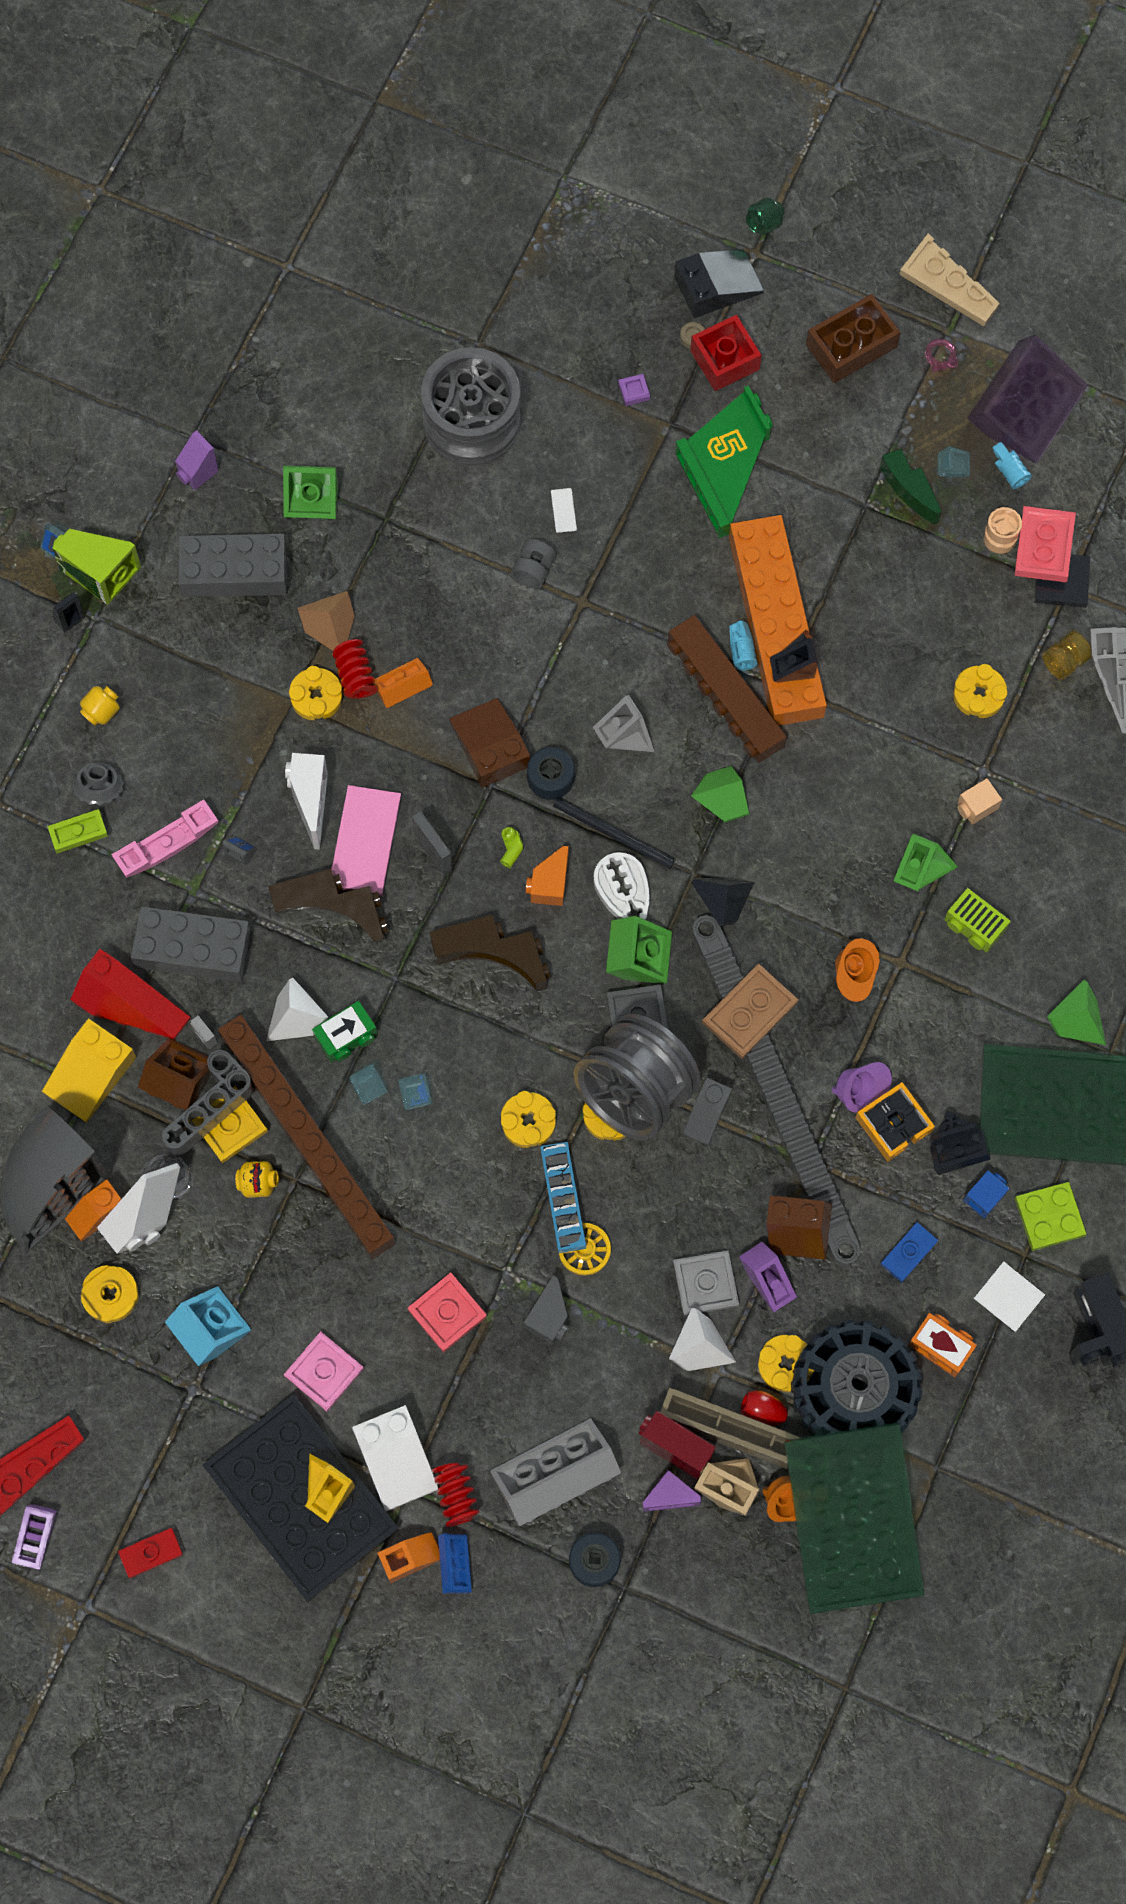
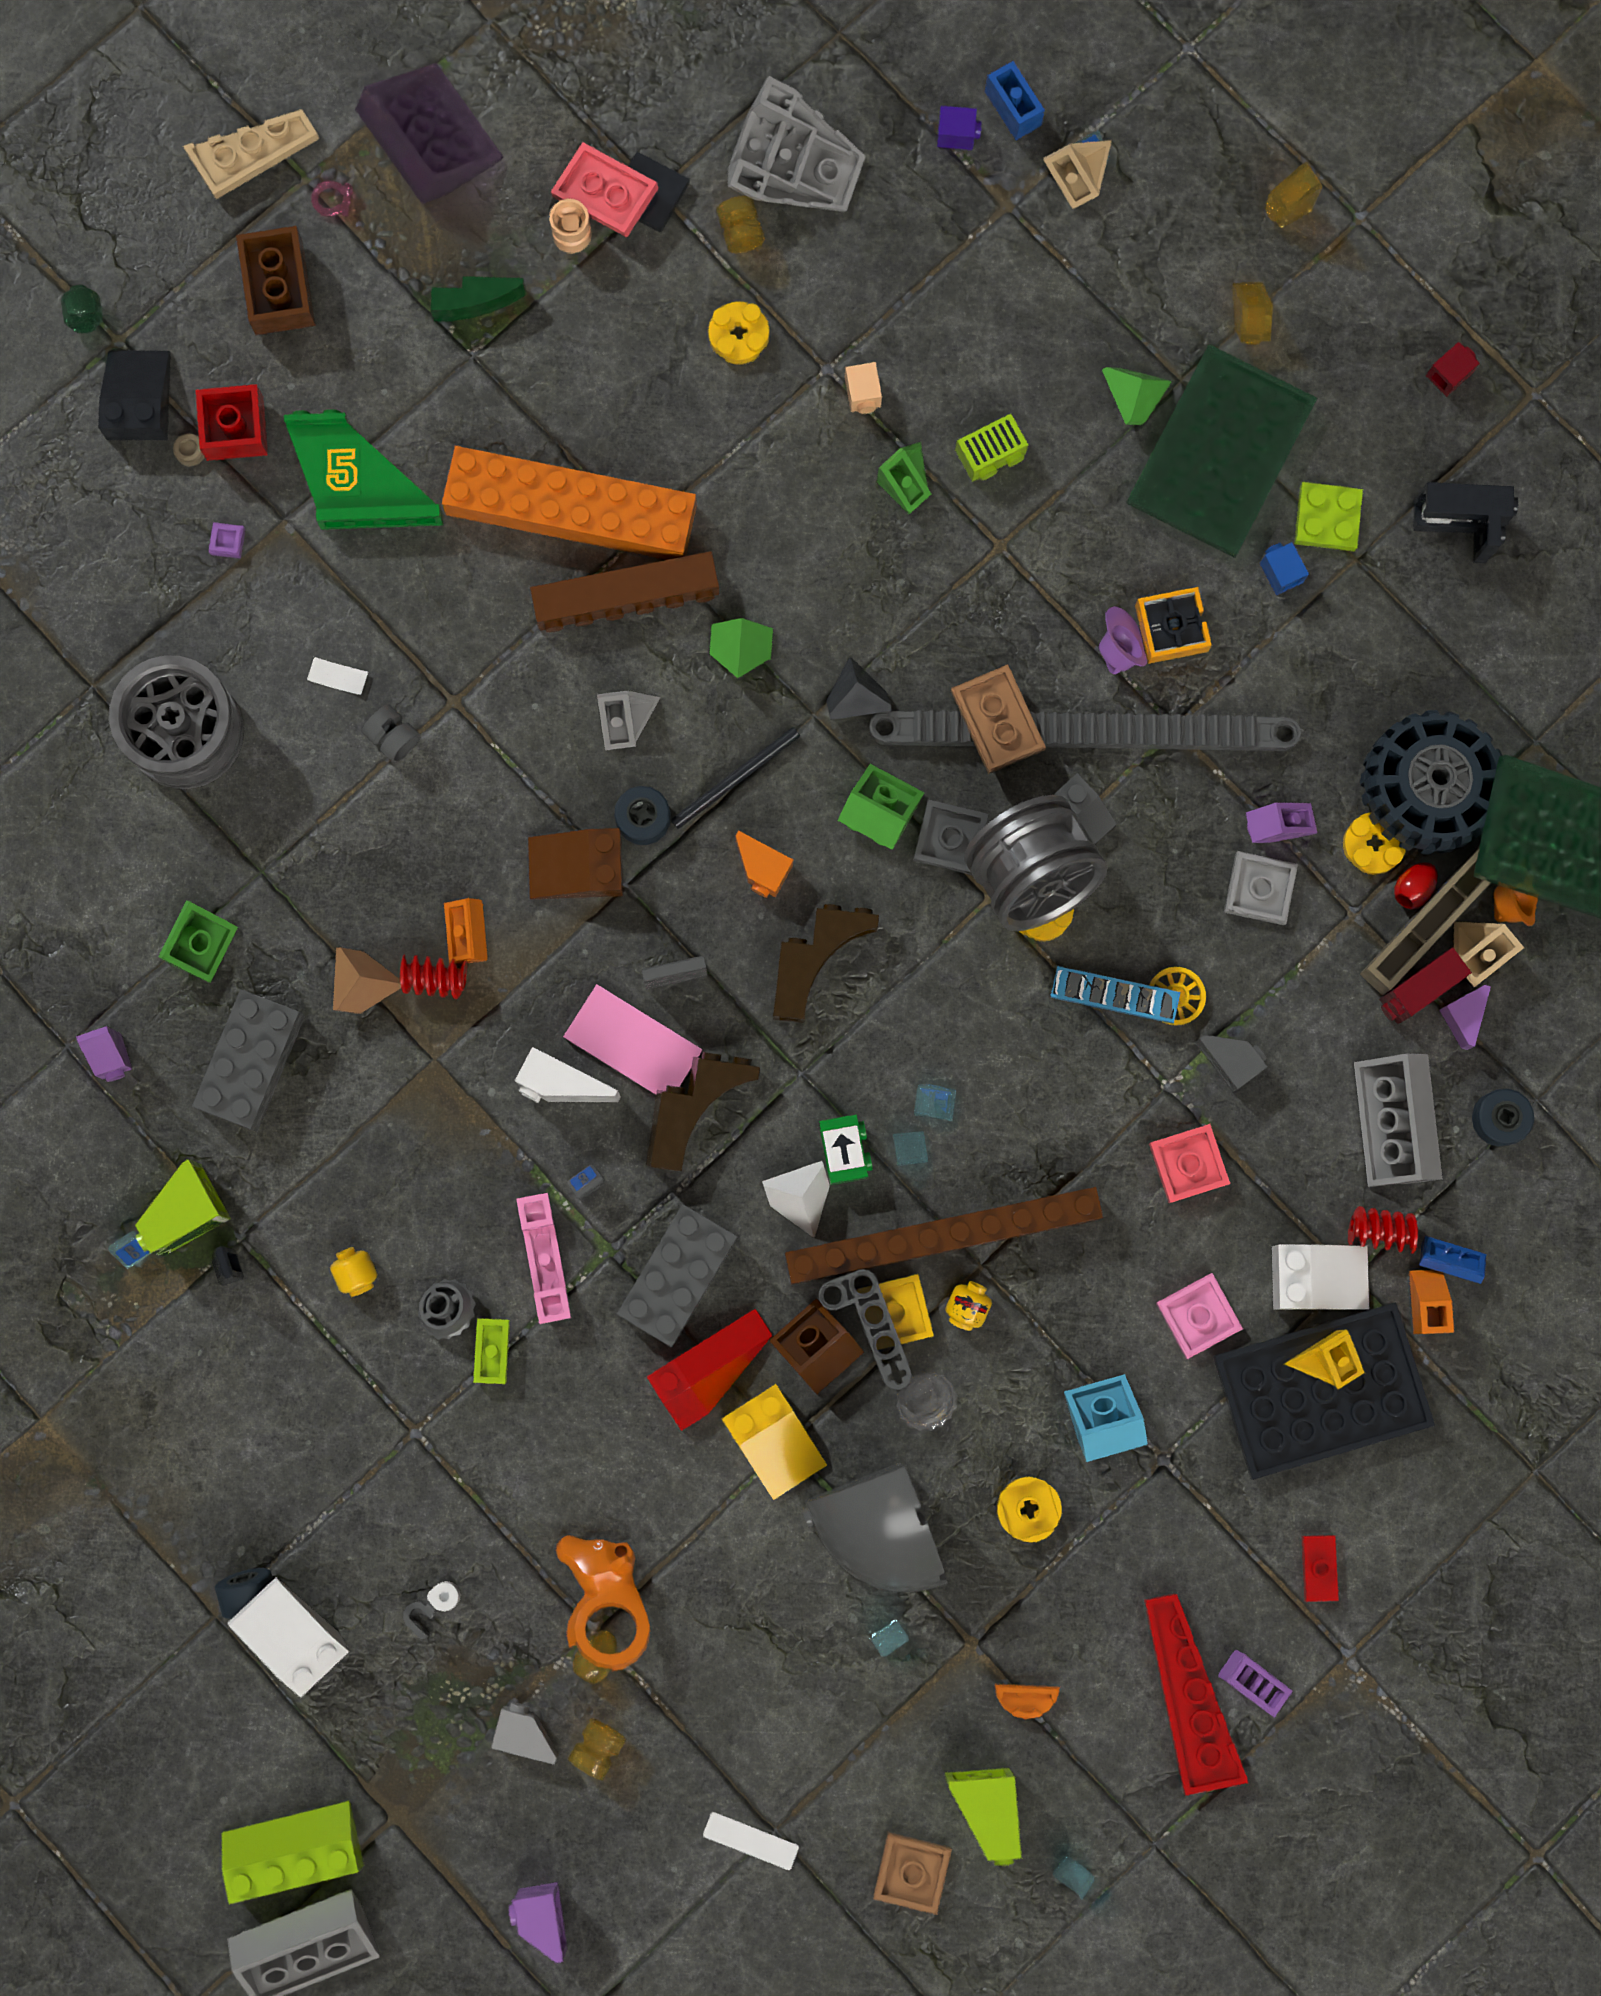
camera: 70 degrees left, 10 degrees up
(92, 1210) = (933, 1490): orange slope -> none
(141, 1211) = (967, 1444): white slope -> none
(203, 1032) = (782, 1300): light grey tile -> none
(318, 707) = (433, 1047): yellow plate -> none
(513, 845) = (706, 888): lime arm -> none
(525, 1104) = (1019, 979): yellow plate -> none
(634, 878) = (798, 776): white piece -> none
(700, 1344) = (1324, 919): white slope -> none
(742, 646) = (582, 553): medium azure hinge -> none
(796, 660) = (633, 500): black slope -> none
(798, 1227) = (1246, 768): reddish brown slope -> none
(857, 969) = (996, 593): orange piece -> none
(909, 1252) = (1310, 671): blue plate -> none
(942, 1344) = (1420, 679): brick -> none
(953, 463) = (465, 243): clear light blue slope -> none
(958, 1145) = (1222, 573): black slope -> none
(1009, 1296) = (1392, 593): white sticker -> none
(1011, 466) = (497, 184): medium azure hinge -> none

